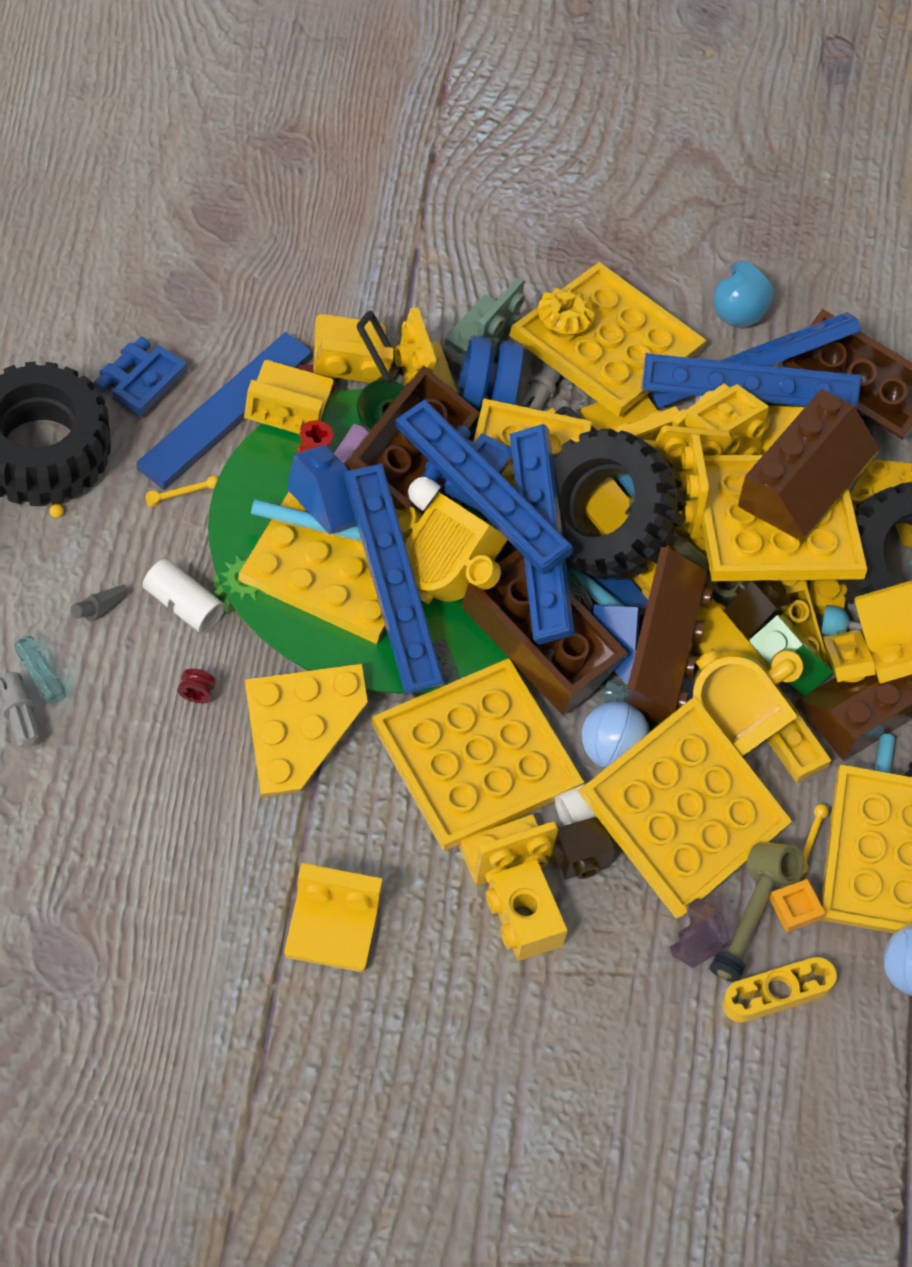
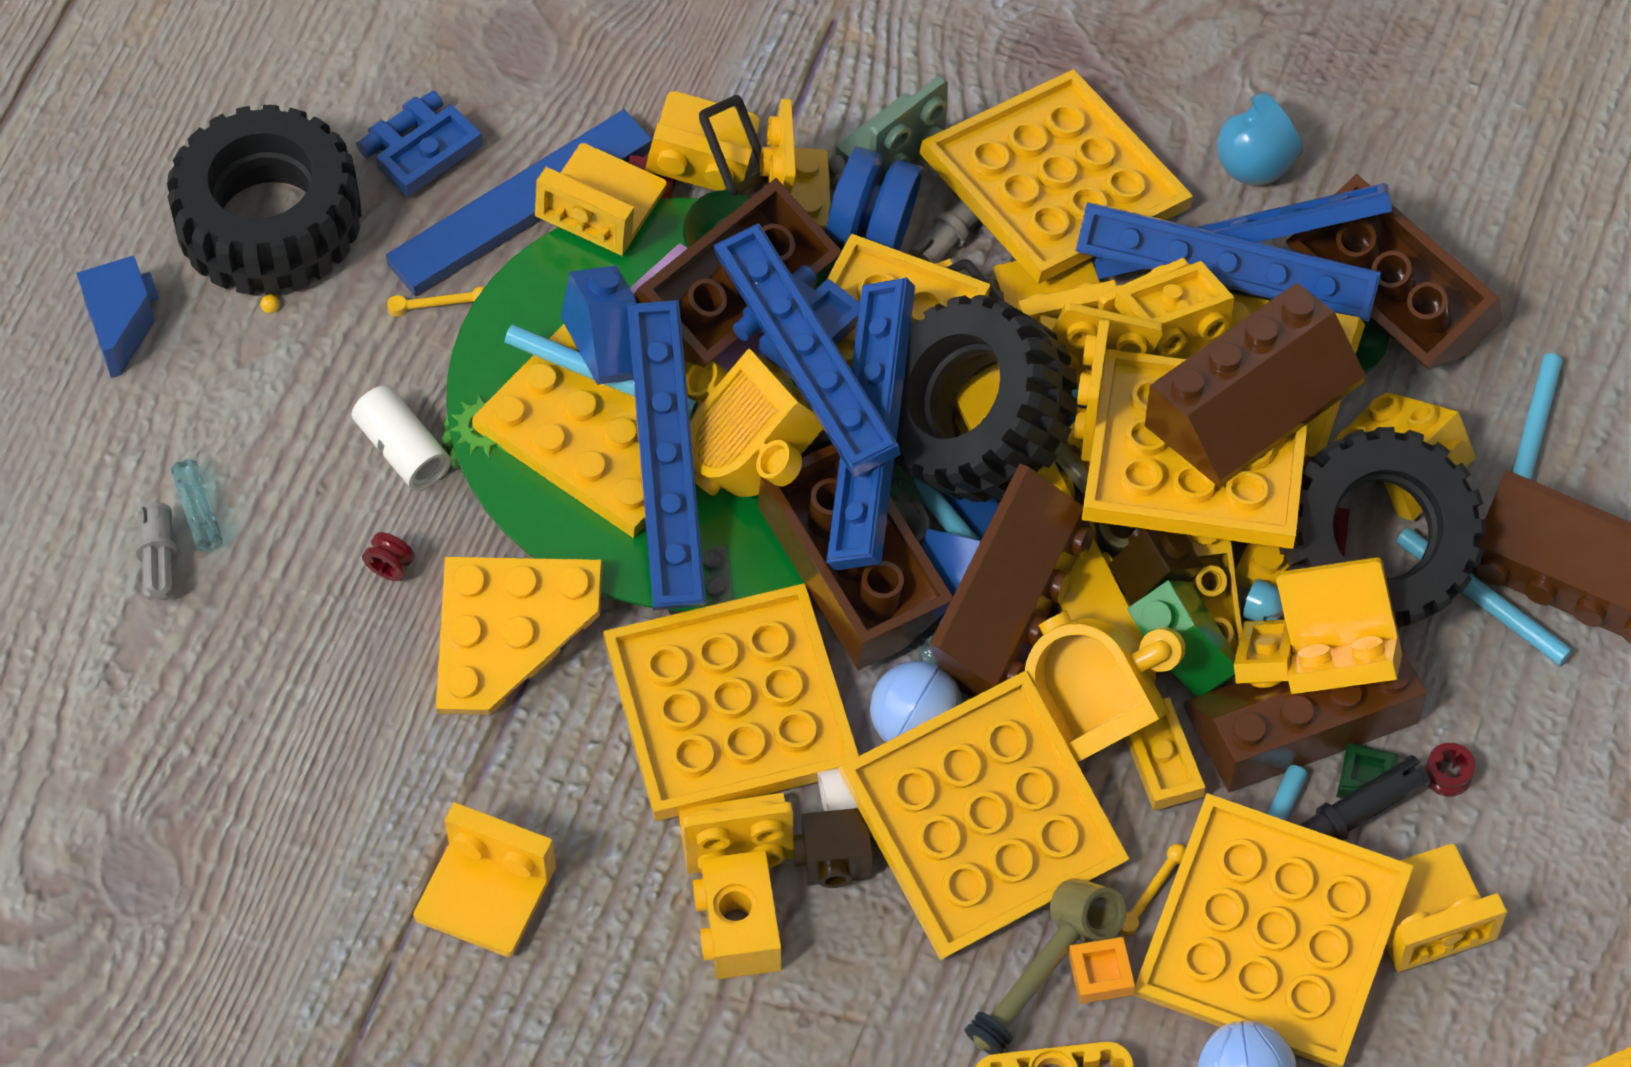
camera: 20 degrees right, 0 degrees up
(98, 603) = (291, 431): dark grey bar -> none
(315, 434) = (619, 250): red bush -> none
(422, 491) = (729, 346): white hinge -> none
(569, 321) = (1000, 145): yellow gear -> none
(704, 935) = (960, 987): panel -> none

